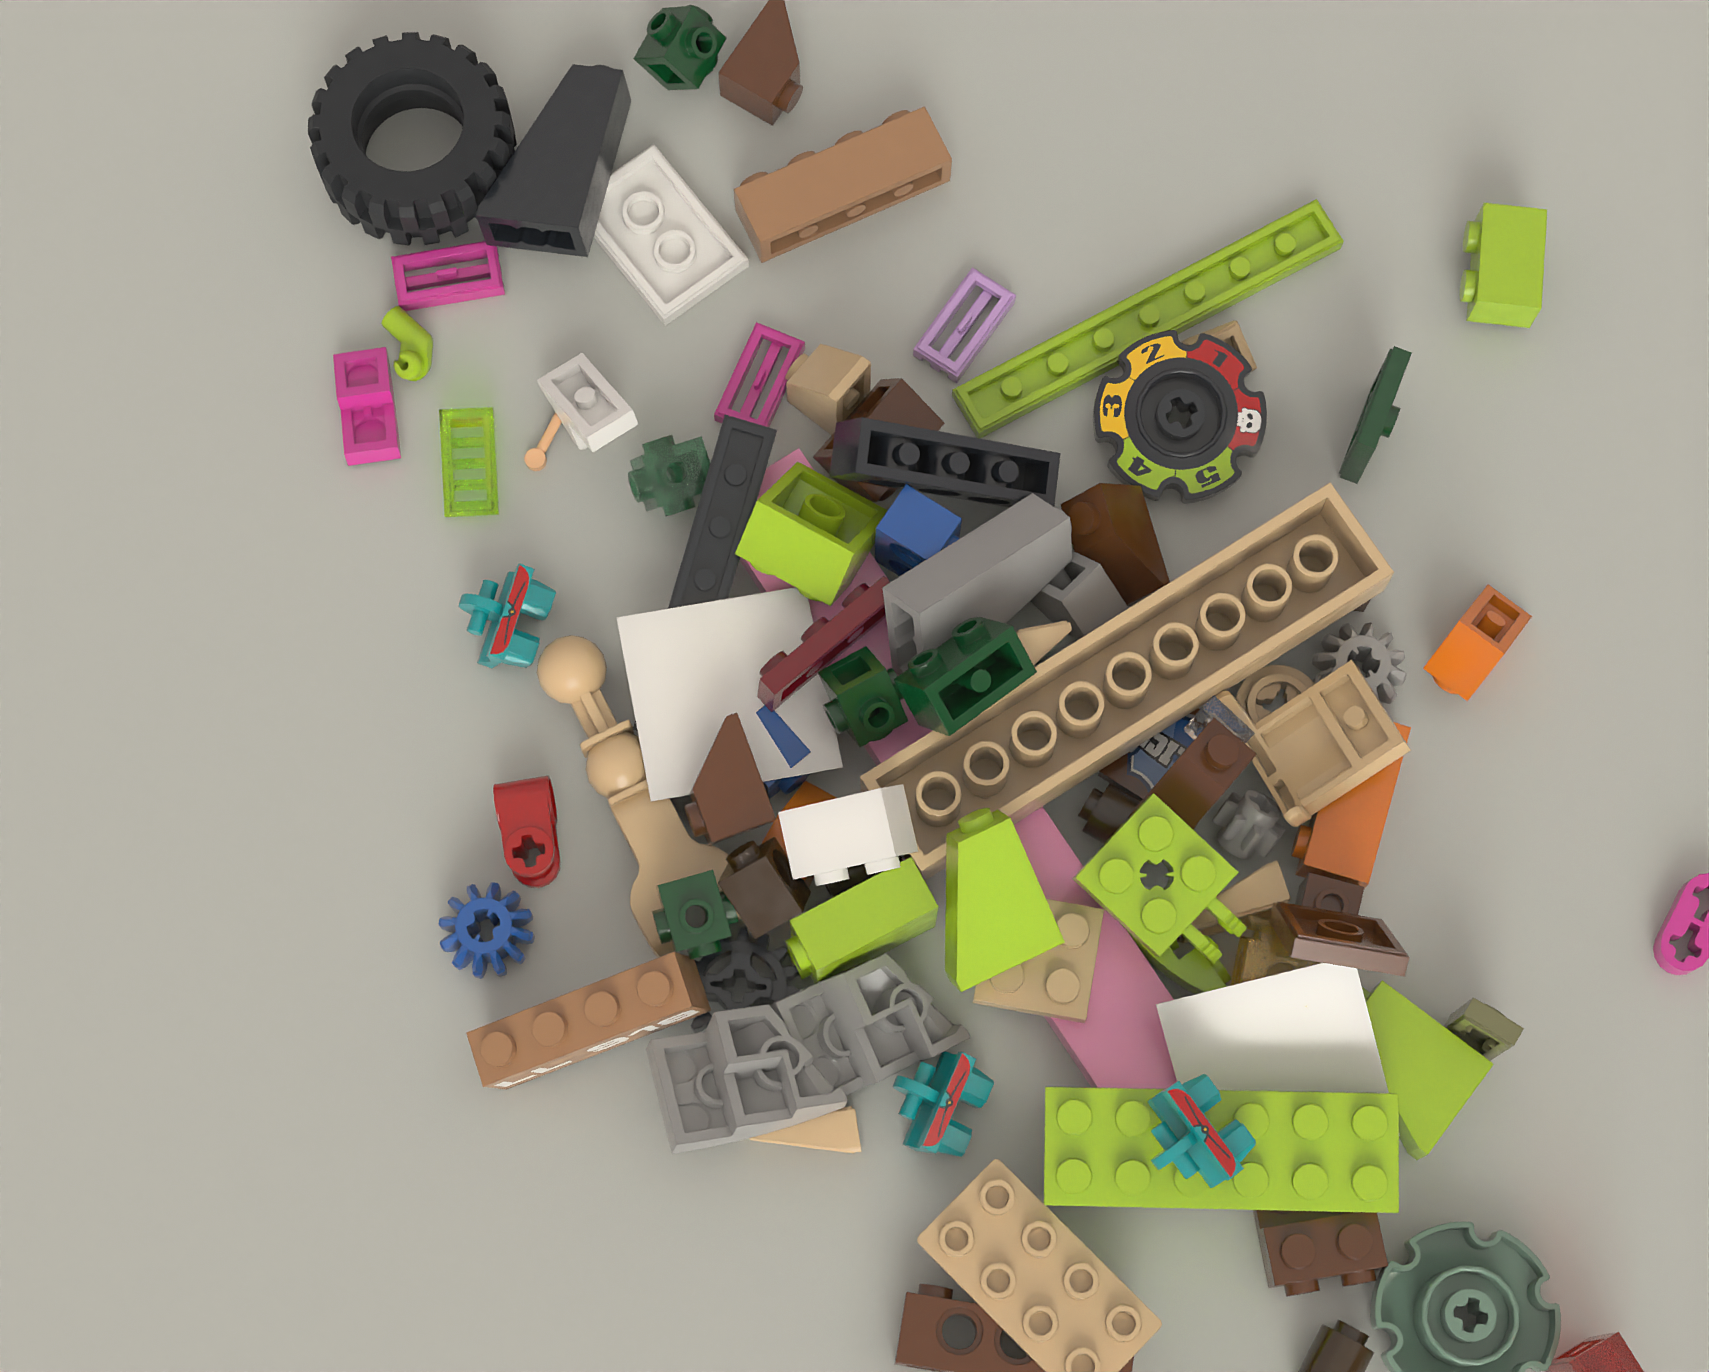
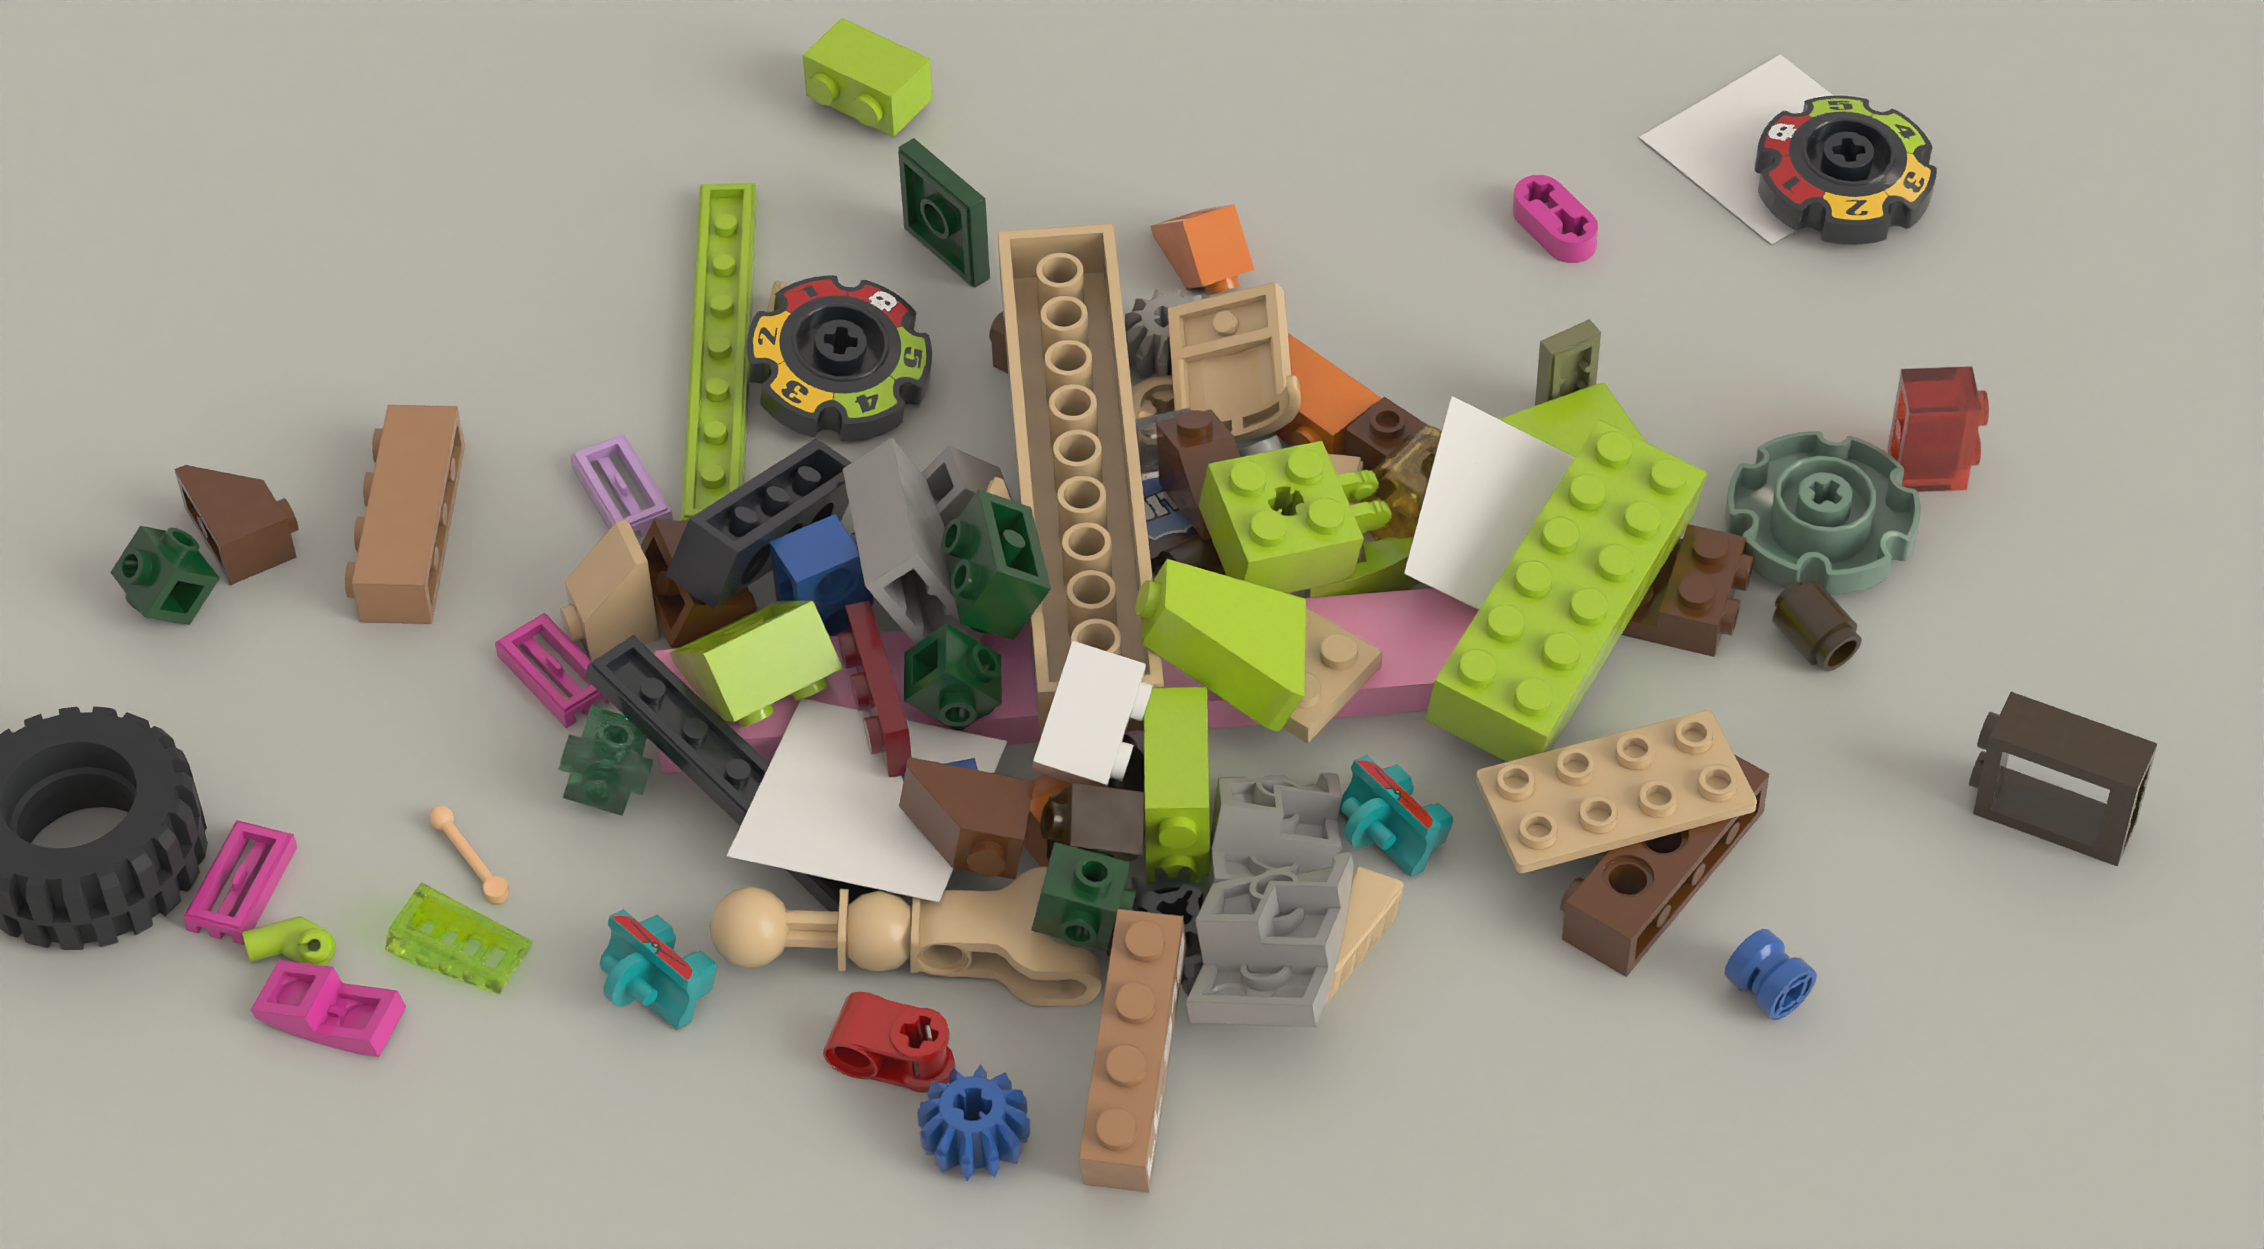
camera: 60 degrees left, 25 degrees down
(561, 169) = (226, 720): black slope -> none
(587, 403) = (481, 800): white slope -> none
(664, 237) = (338, 688): white tile -> none
(1117, 532) = (927, 437): reddish brown slope -> none
(1191, 1138) = (1552, 562): teal hips -> none
(1338, 938) = (1428, 400): reddish brown tile -> none

